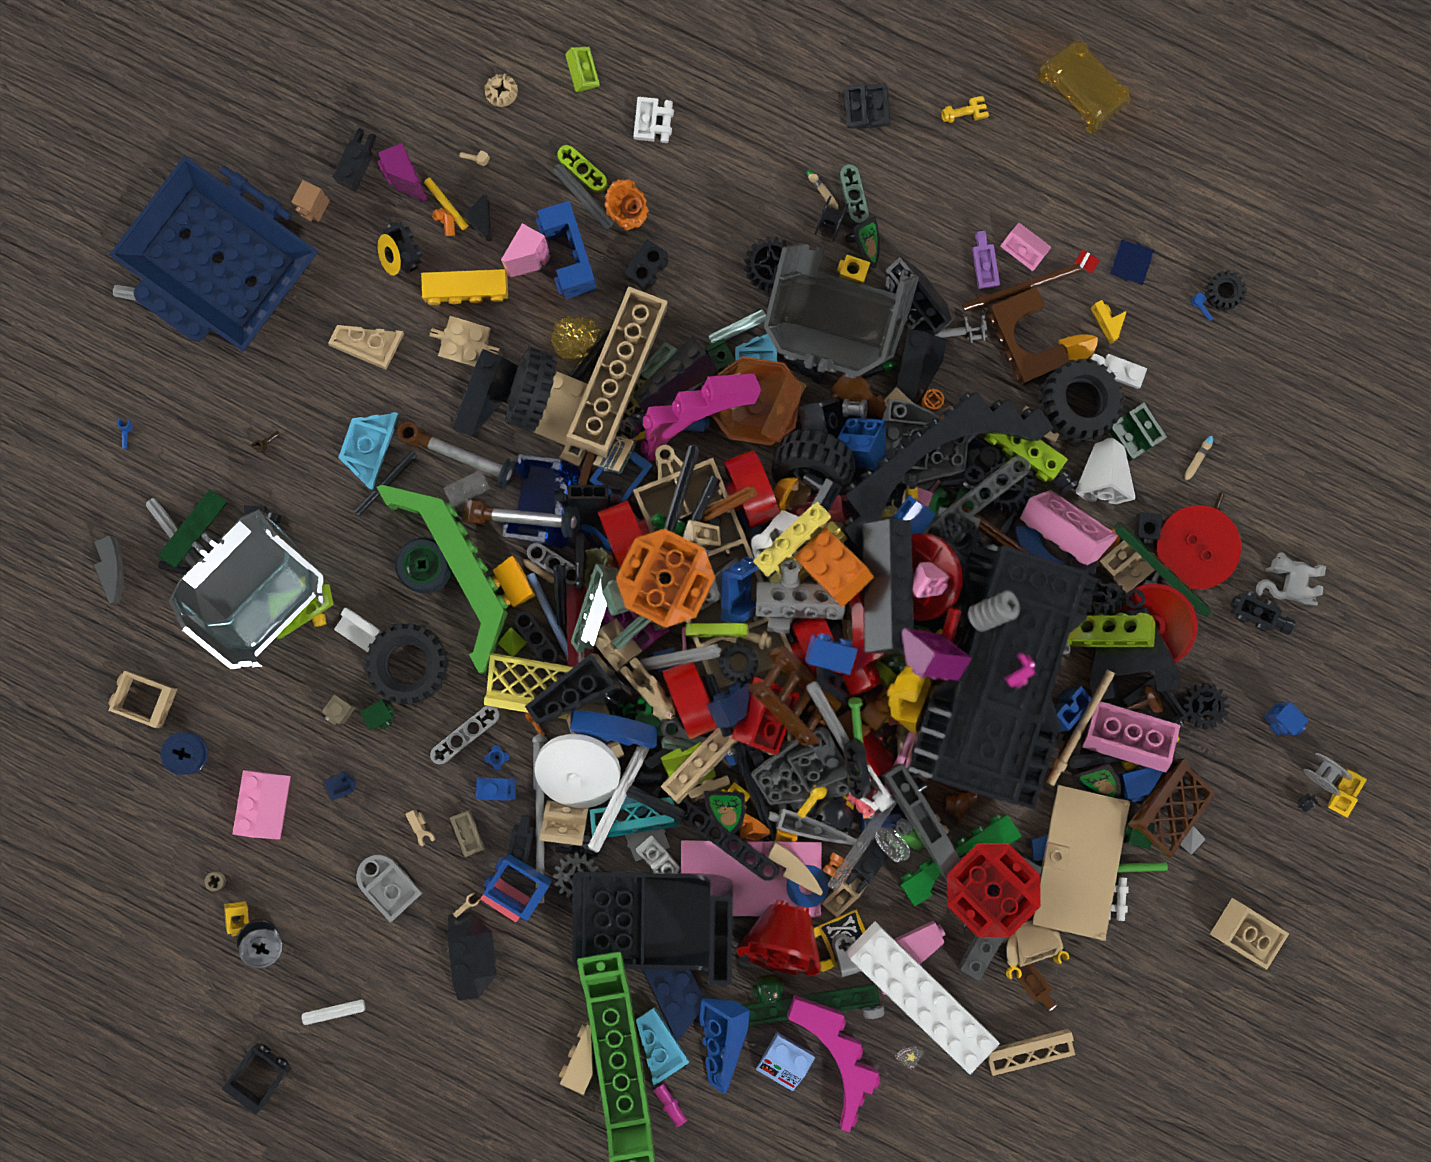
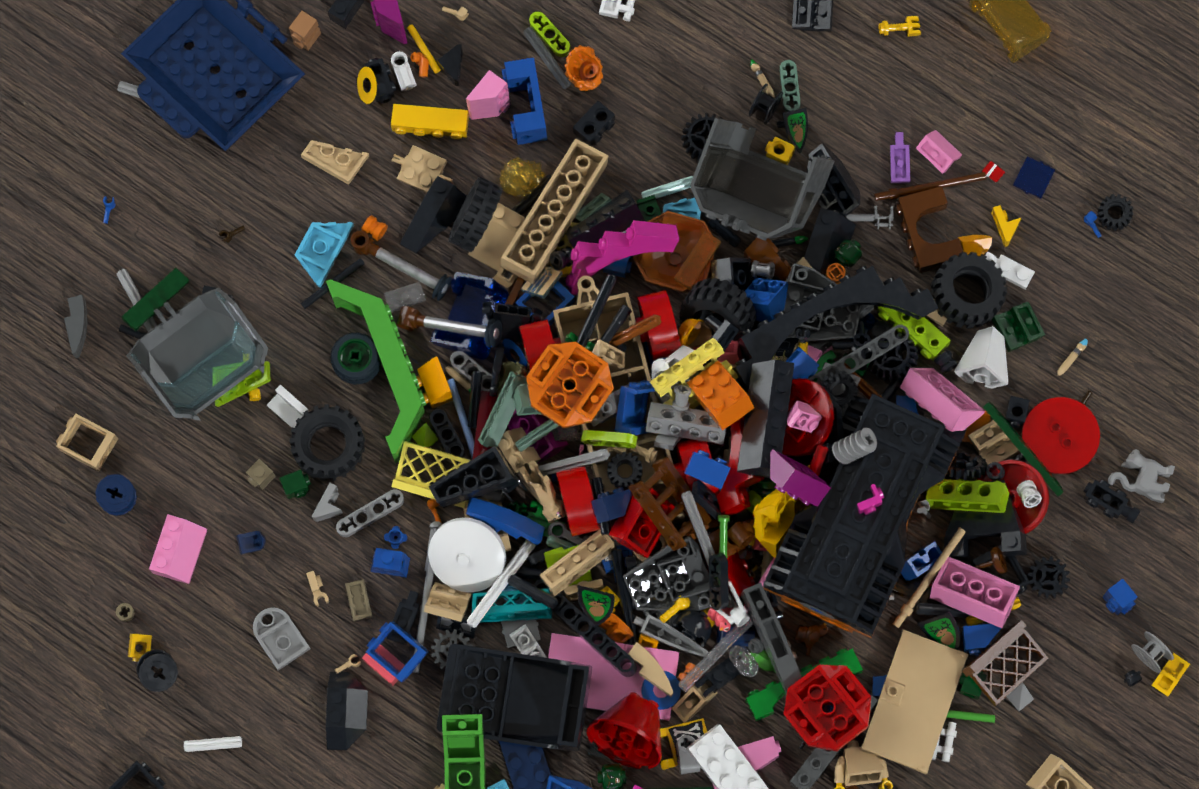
camera: 15 degrees right, 10 degrees down
(414, 737) = (324, 508): none -> light grey slope
(421, 415) = (374, 227): none -> orange wheel
(427, 234) = (403, 72): none -> white piece
(943, 375) = (848, 253): none -> dark green head
(1176, 621) = (1030, 497): none -> white wheel

